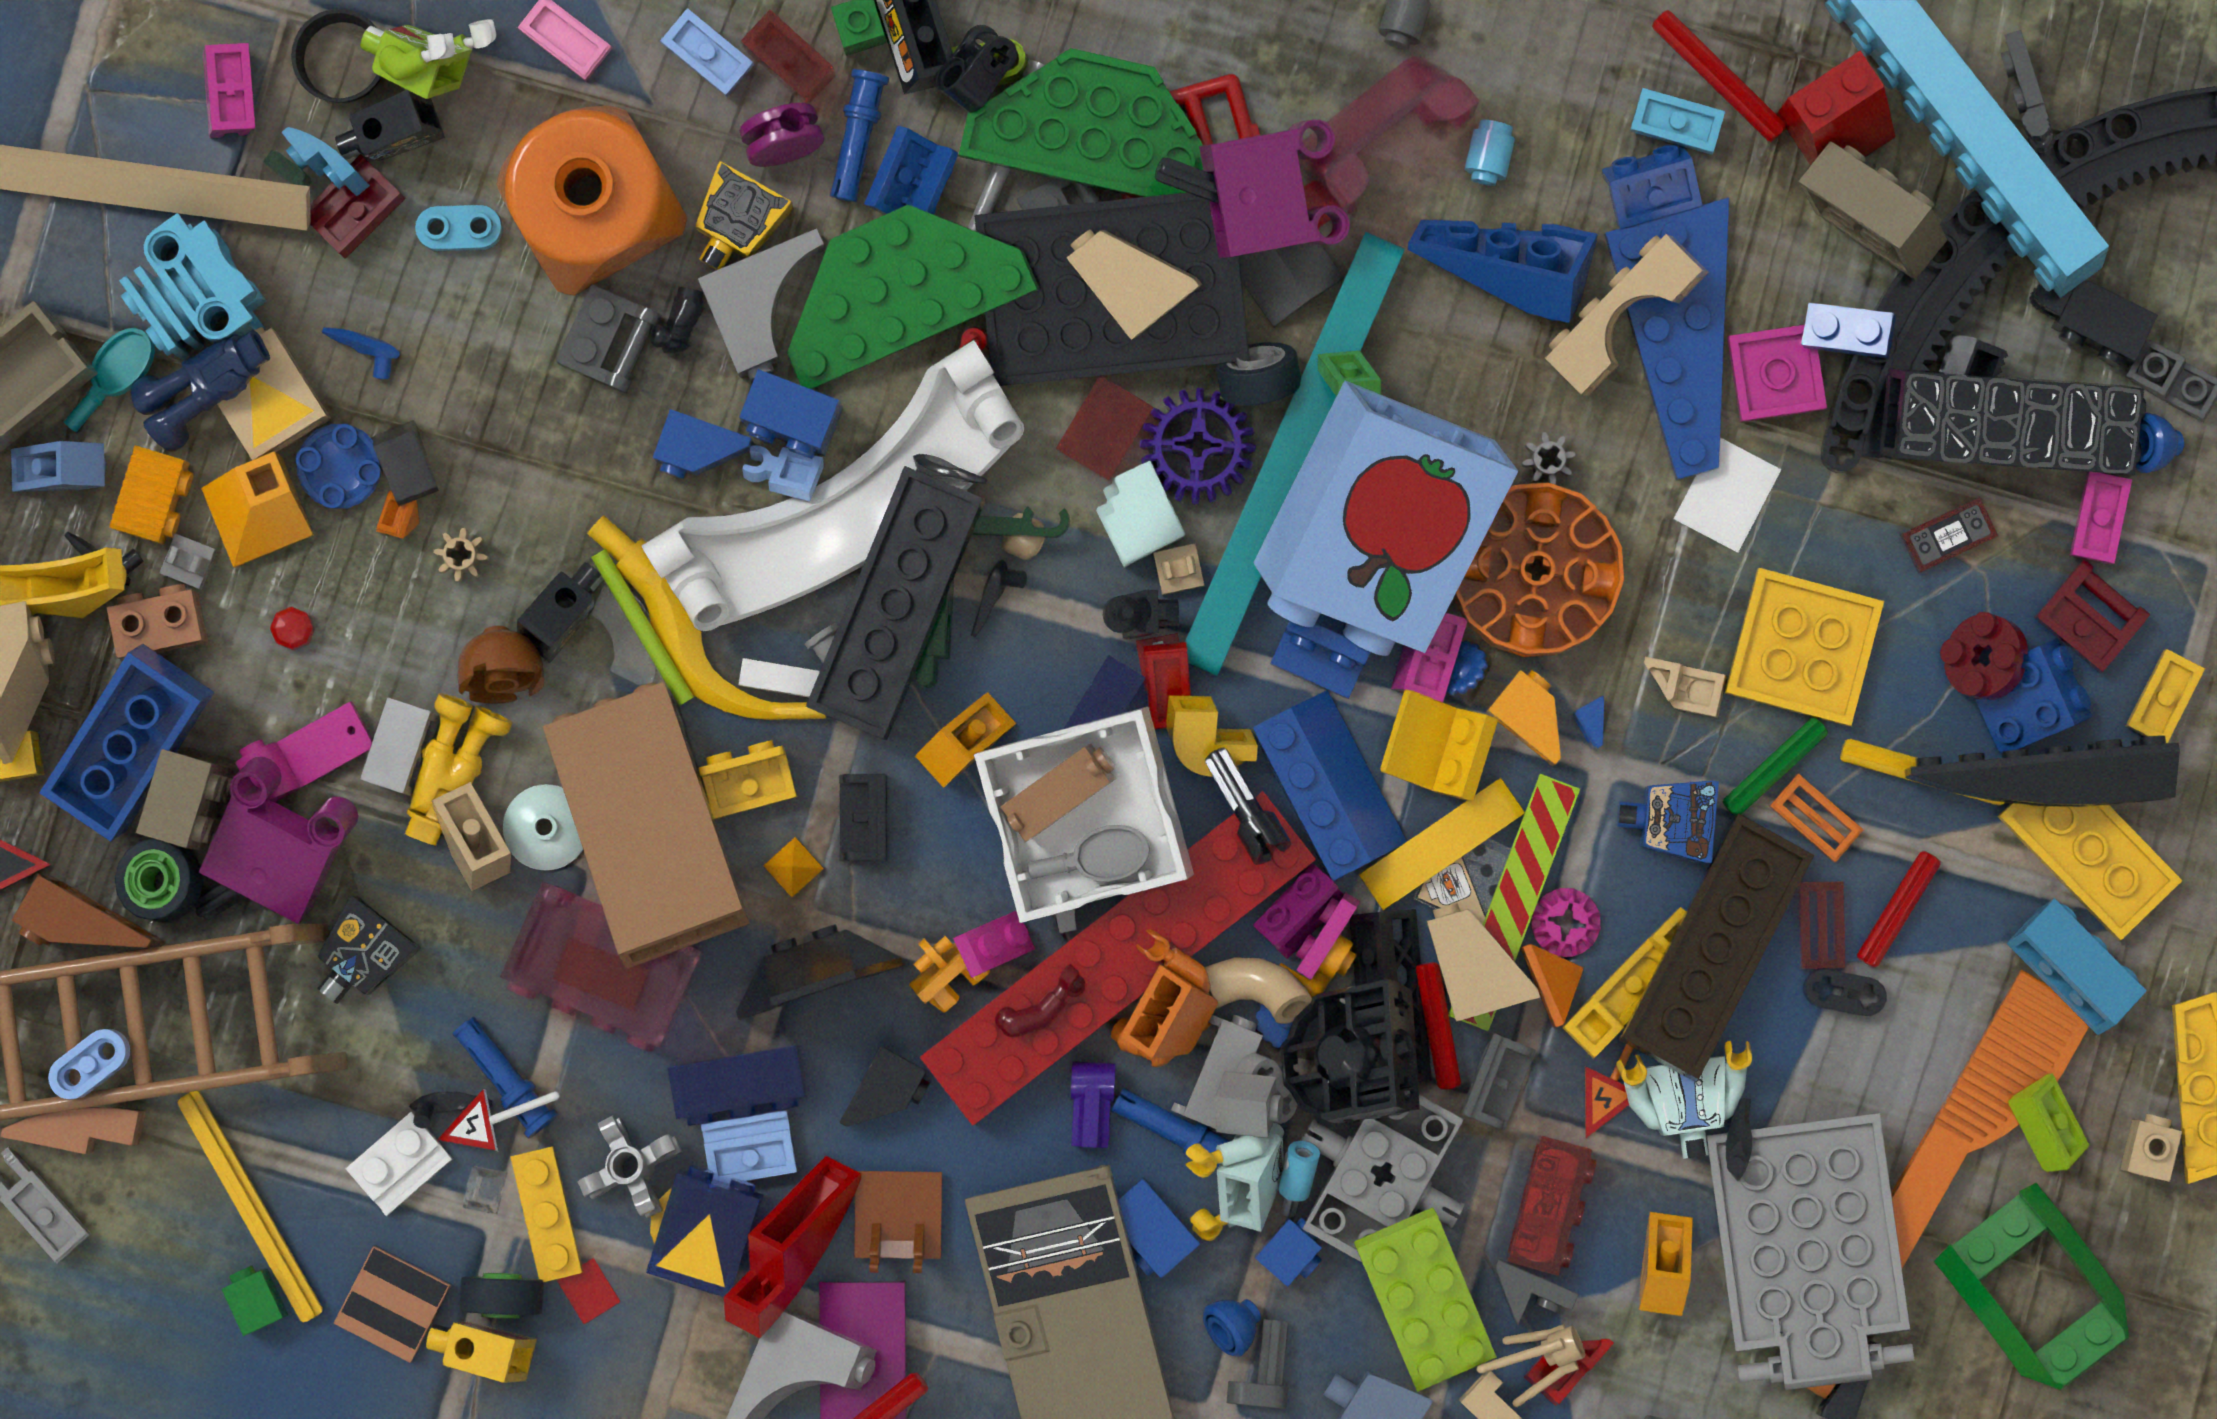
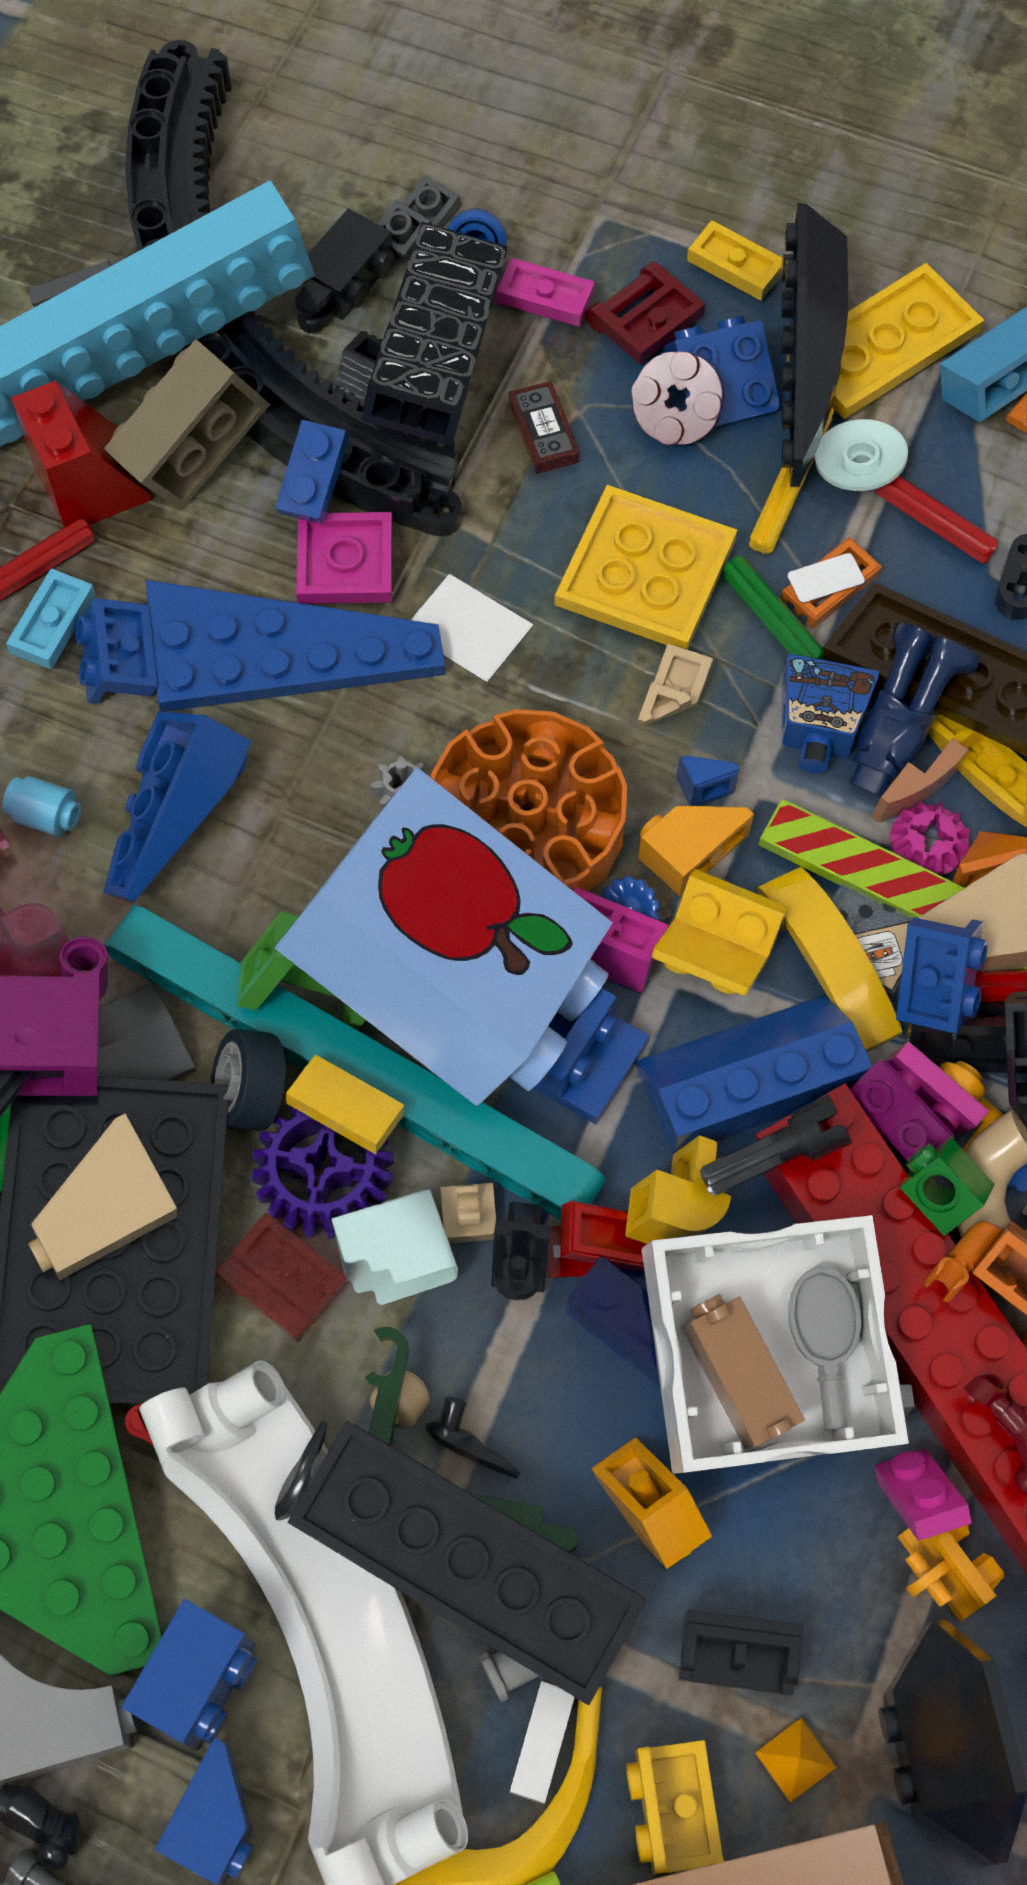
camera: 85 degrees left, 20 degrees down
(787, 473) = (269, 1697): light blue plate -> none
(1236, 944) = (942, 1205): none -> green brick
(1244, 456) = (345, 1104): none -> yellow tile
(1415, 930) = (941, 974): none -> blue bracket
(1587, 353) = (289, 729): tan arch -> none
(1606, 900) = (916, 786): none -> nougat slope
(1658, 880) = (896, 731): none -> dark blue piece
(1814, 811) = (826, 577): none -> white sticker
(1839, 926) = (948, 583): clear red tile -> none
(1968, 828) = (861, 455): none -> light aqua dish

